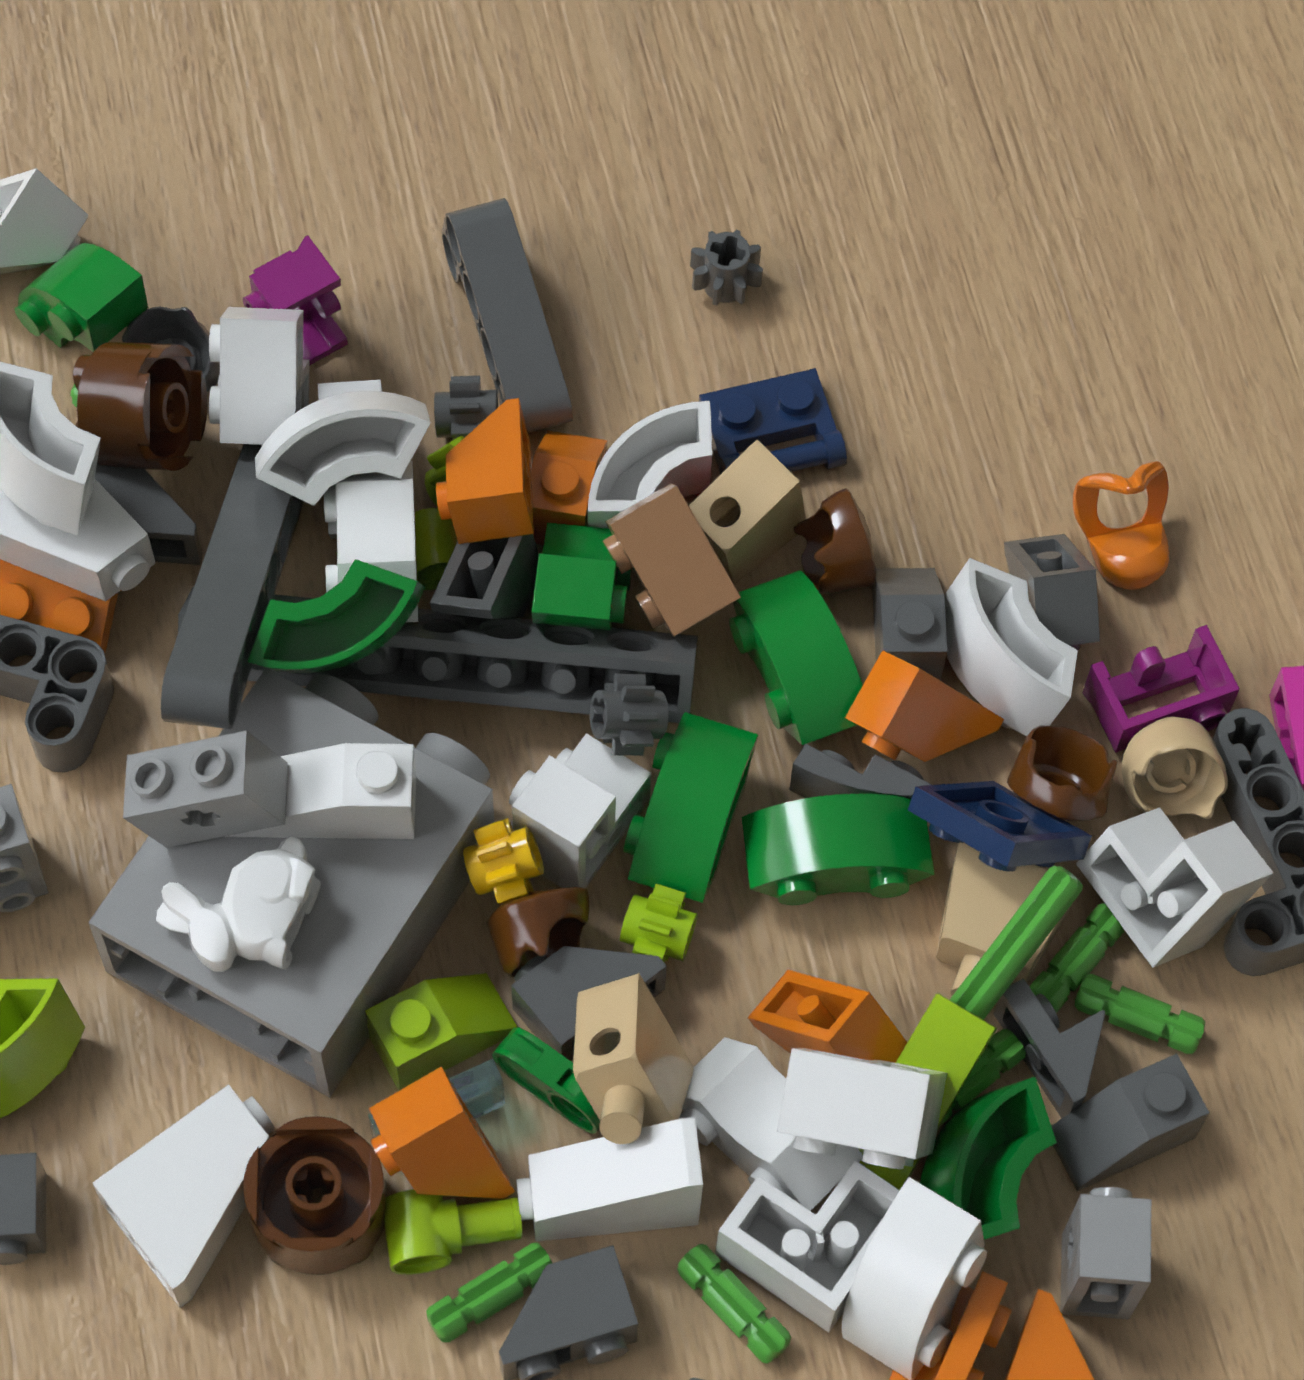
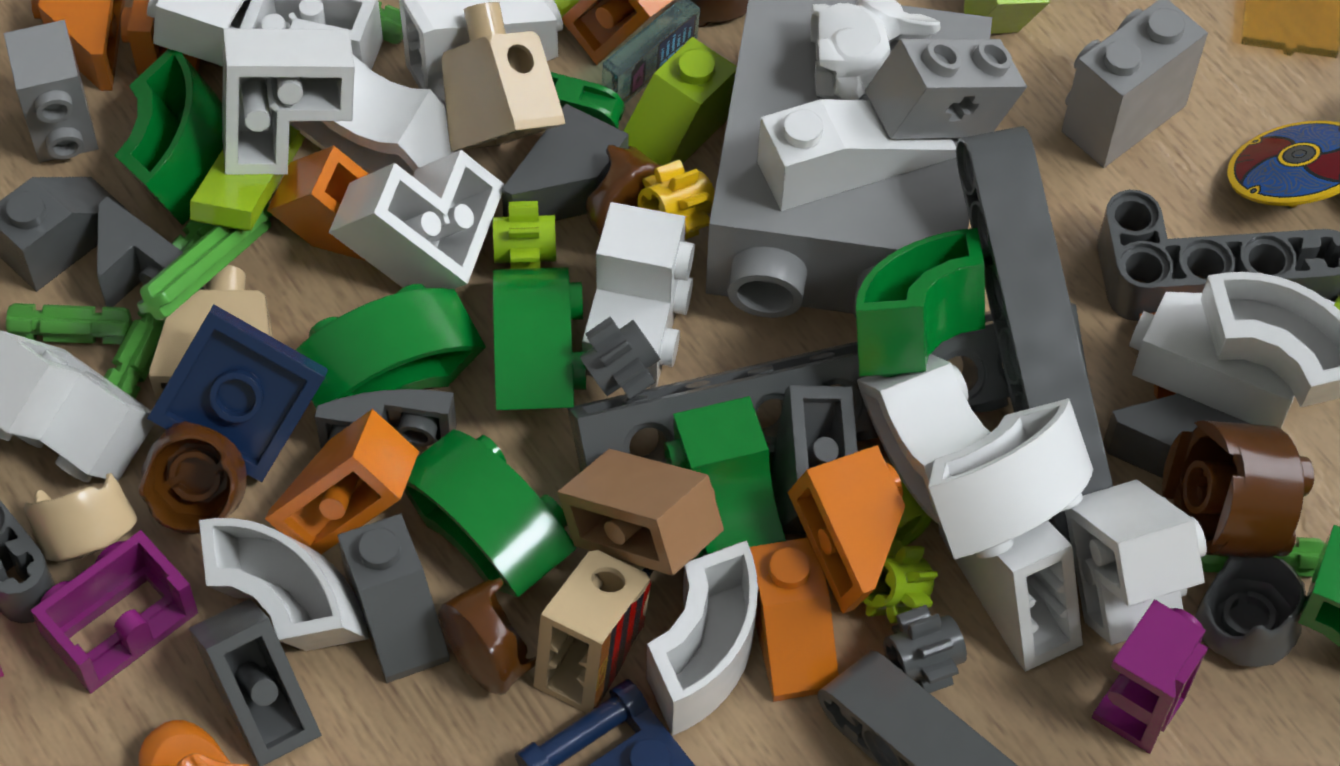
camera: 160 degrees right, 5 degrees down
(752, 951) = (420, 224): none -> white brick

